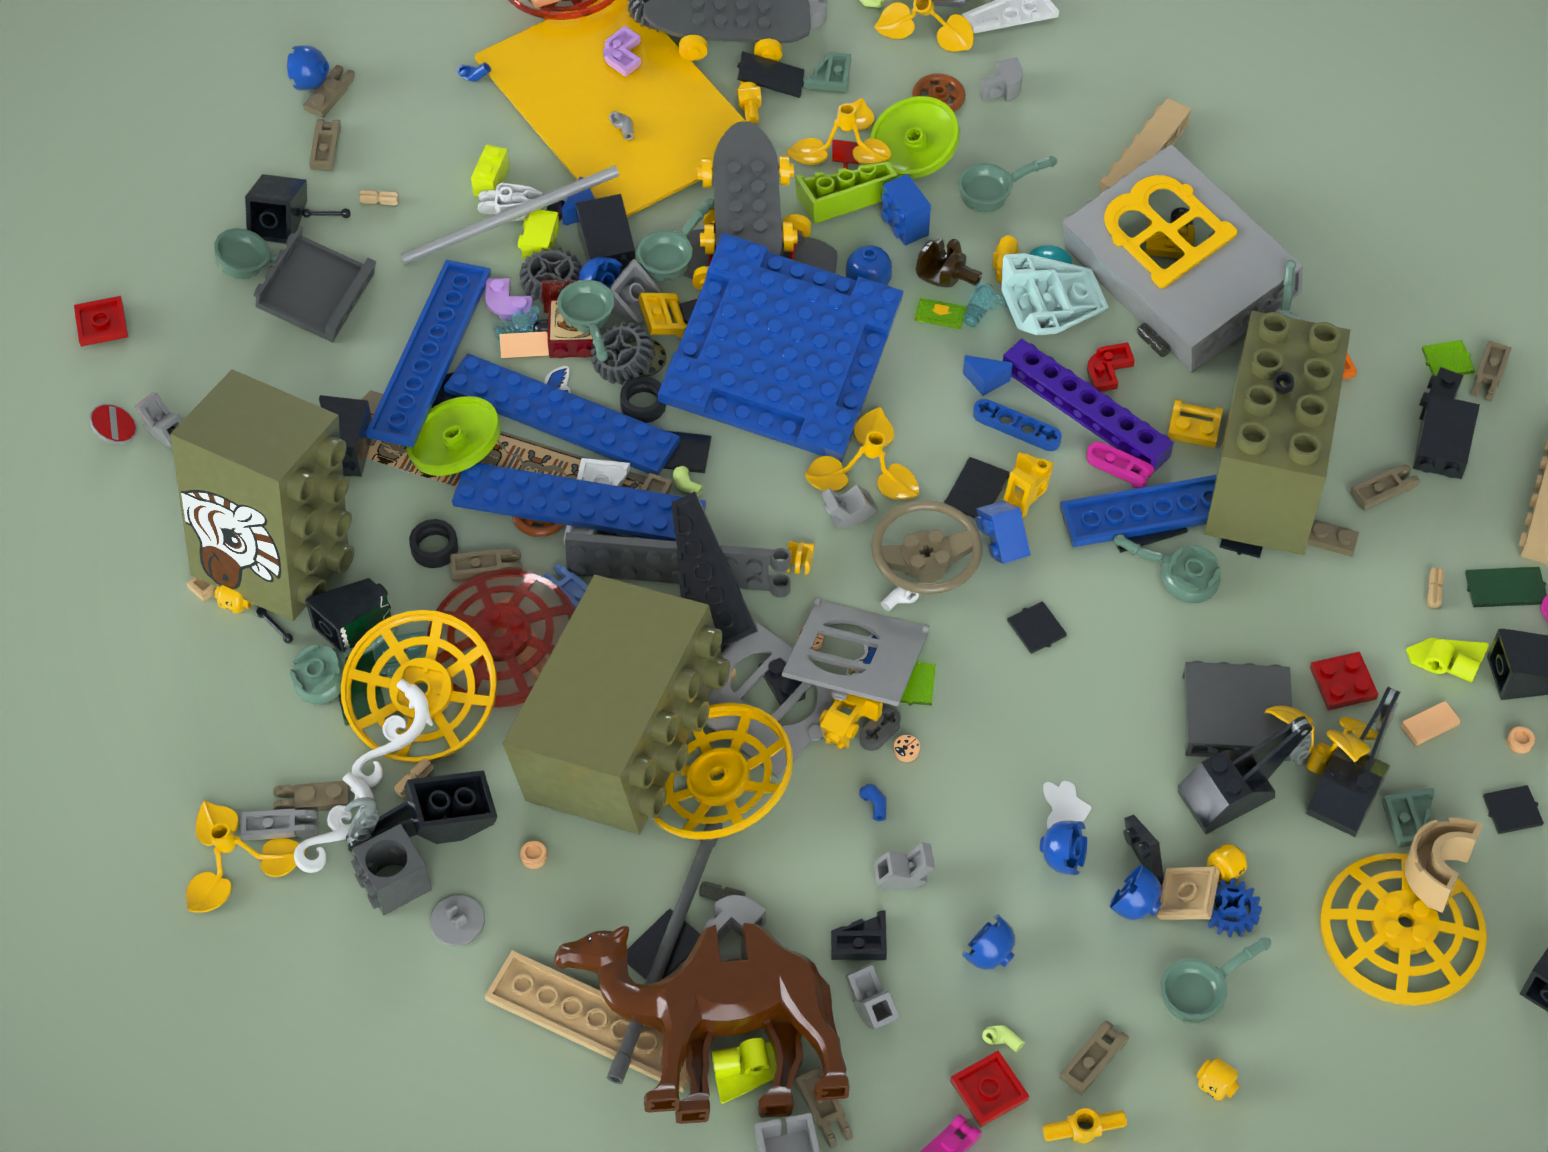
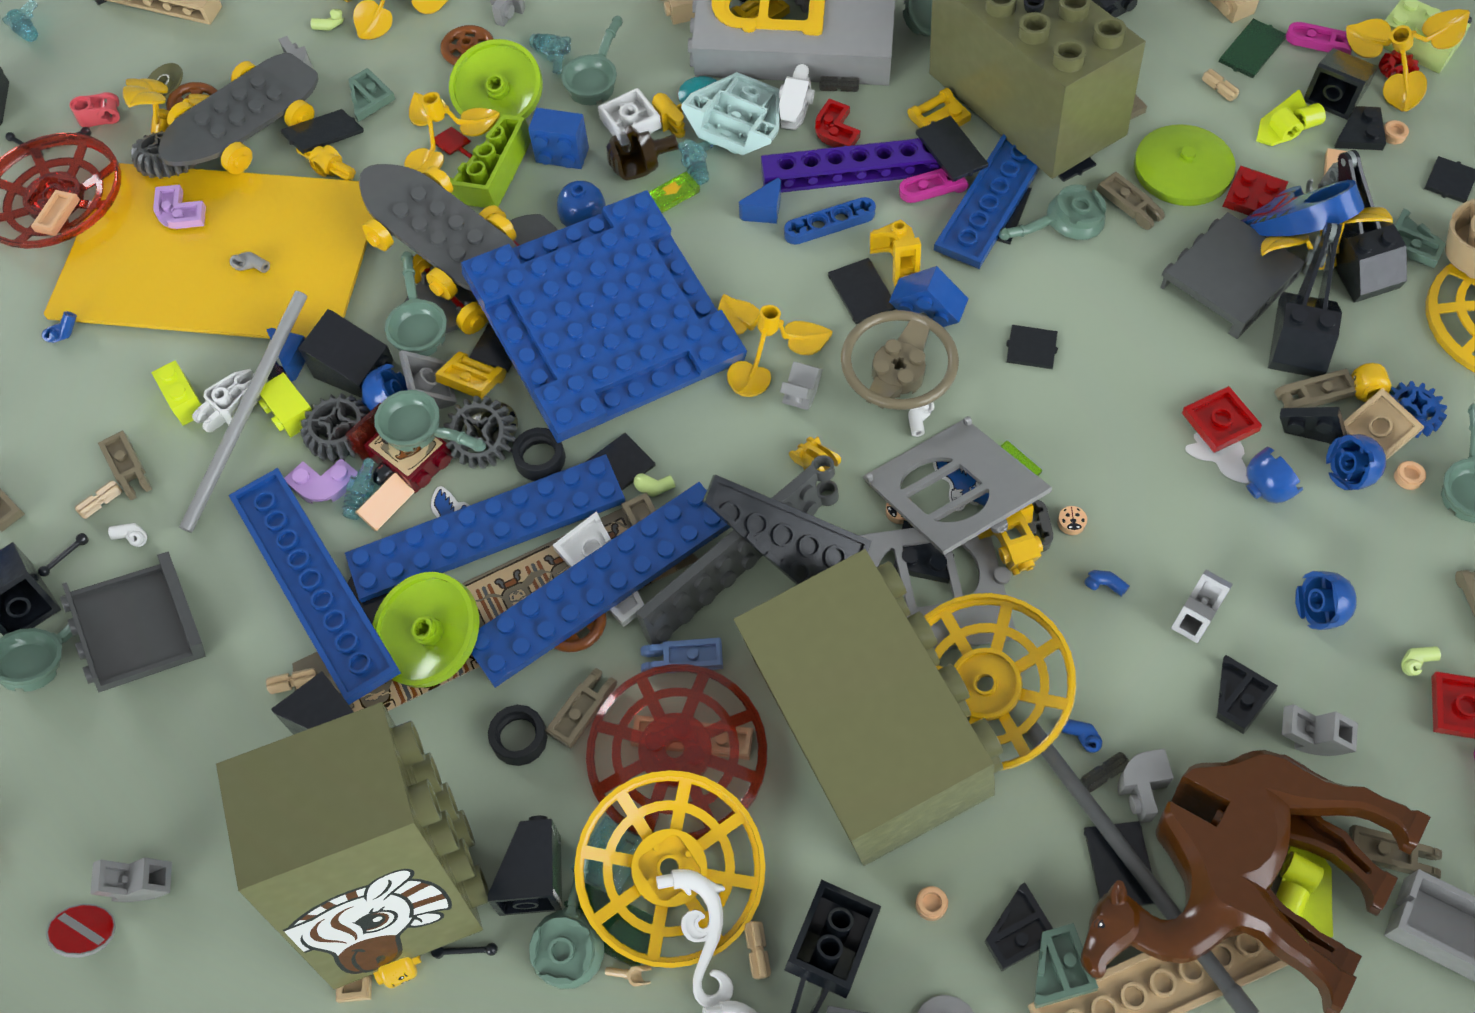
camera: 45 degrees left, 5 degrees up
(338, 722) = (632, 974): none -> tan hand
(348, 391) = (286, 683): none -> tan piece
(374, 233) = (131, 531): none -> white arm
(415, 188) = (124, 463): none -> dark tan hinge
(542, 948) = (1060, 968): none -> sand green wing
(558, 915) = (1017, 930): none -> black wing
(741, 864) = (1085, 733): none -> blue arm
(977, 235) = (627, 110): none -> white brick
(991, 143) = (553, 46): none -> clear light blue piece
(1090, 786) = (1221, 419): none -> red plate
(1104, 321) = (795, 98): none -> white hinge
(1156, 449) = (951, 148): none -> black piece
(1168, 943) = (1410, 475): none -> light nougat tile
(1182, 833) = (1317, 390): none -> dark tan plate
(1243, 598) = (1131, 200): none -> dark tan hinge
(1322, 614) = (1184, 165): none -> lime dish
(1329, 709) = (1303, 213): none -> blue animal
(1496, 715) = (1363, 130): none -> black wing

